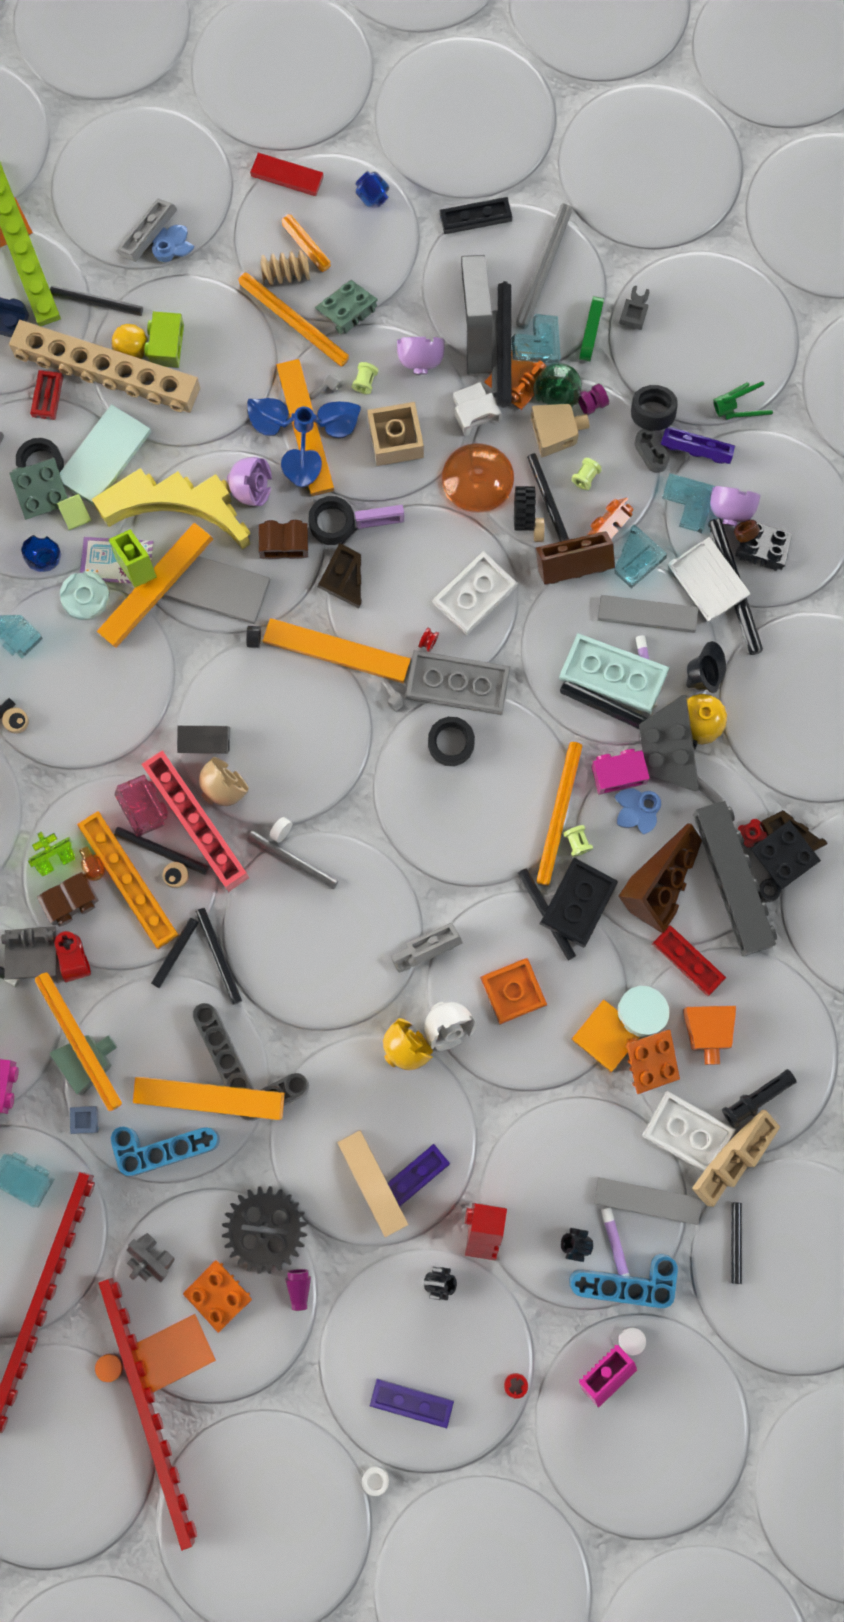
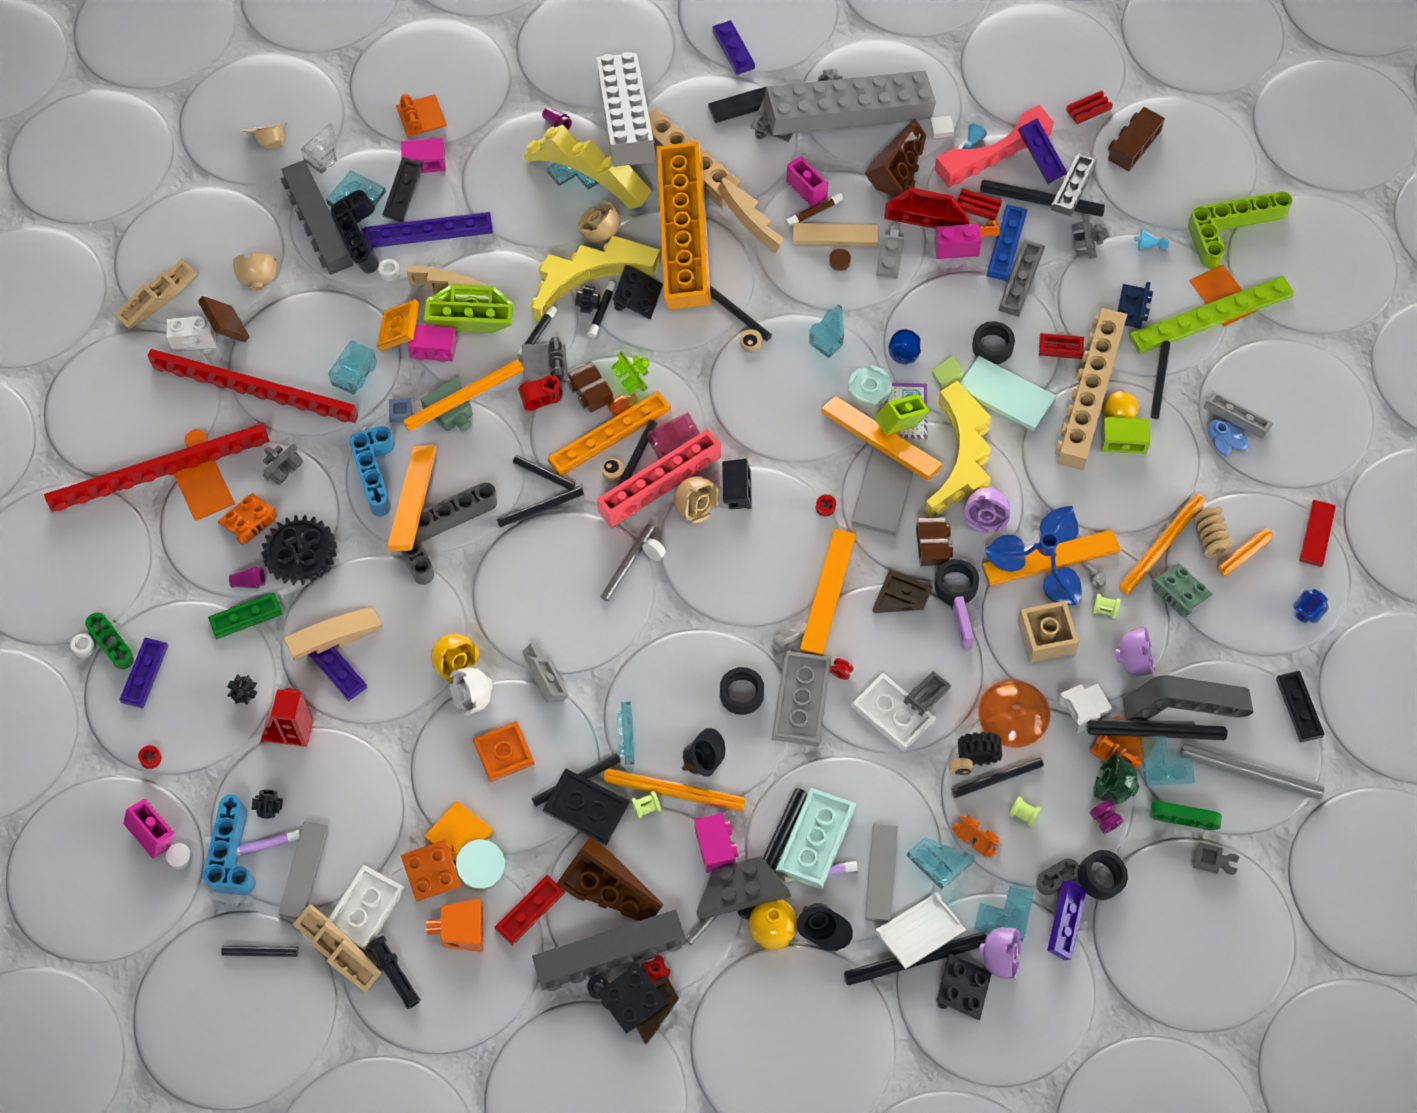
camera: 90 degrees right, 15 degrees down
(38, 488) = (965, 339): sand green hinge -> none
(224, 648) = (825, 499): none -> red bush
(253, 636) = (837, 520): black axle -> none
(343, 1289) = (245, 615): none -> green tile
(351, 1456) = (109, 631): none -> green beam
(471, 568) = (909, 699): none -> dark grey tile
(494, 857) = (625, 727): none -> clear light blue plate
(525, 781) = (704, 753): none -> black piece
(556, 427) = (1071, 782): tan torso -> none
(575, 557) = (932, 797): reddish brown brick -> none
(635, 812) = (677, 860): medium blue plate -> none
(726, 403) = (1118, 951): green plant -> none
(746, 530) = (973, 963): reddish brown tile -> none

